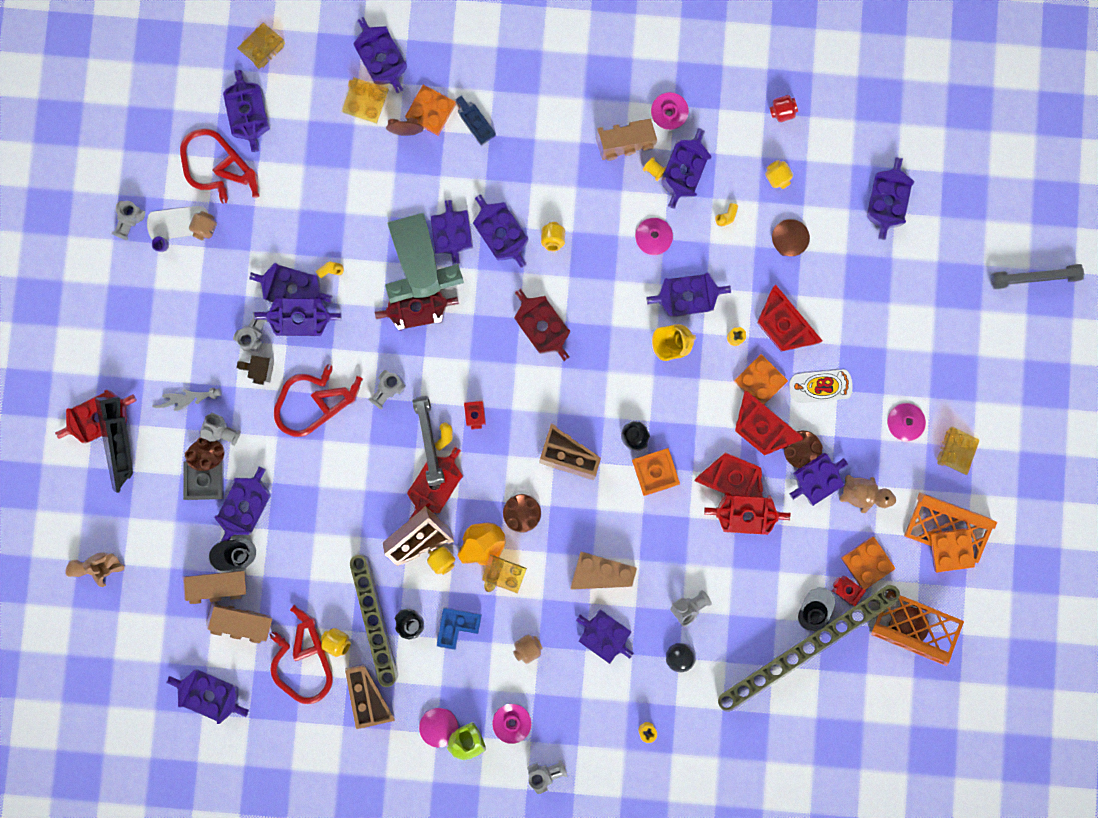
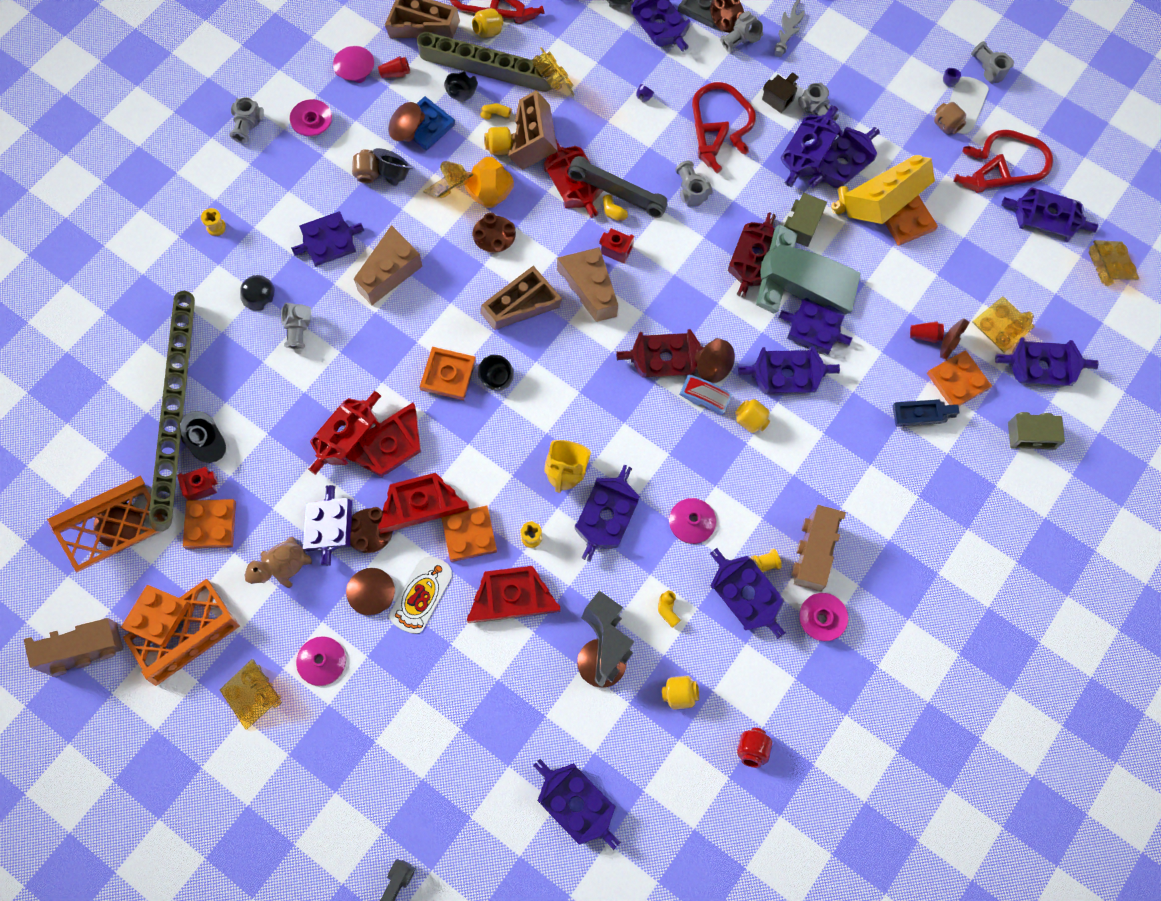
camera: 120 degrees right, 15 degrees down
(304, 234) = (890, 191): none -> yellow wedge
(315, 213) = (911, 222): none -> orange plate
(322, 476) = (645, 91): none -> dark purple hinge
(347, 560) = (551, 71): none -> clear yellow hinge
(365, 287) = (805, 217): none -> olive brick
(406, 149) = (928, 331): none -> red cone
(411, 585) = (495, 108): none -> yellow arm
(423, 689) = (395, 68): none -> red cone
(441, 36) = (1036, 431): none -> olive brick
(466, 742) = (322, 72): lime piece -> none
(470, 644) = (405, 122): none -> copper dish
(512, 629) = (392, 166): none -> black piece
(519, 413) = (590, 281): none -> medium nougat wedge
(528, 286) = (715, 360): none -> copper dish
(555, 279) = (705, 393): none -> slope
(781, 233) = (613, 645): none -> dark grey arch
(842, 420) = (370, 591): none -> copper dish
(1007, 587) = (74, 648): none -> medium nougat wedge

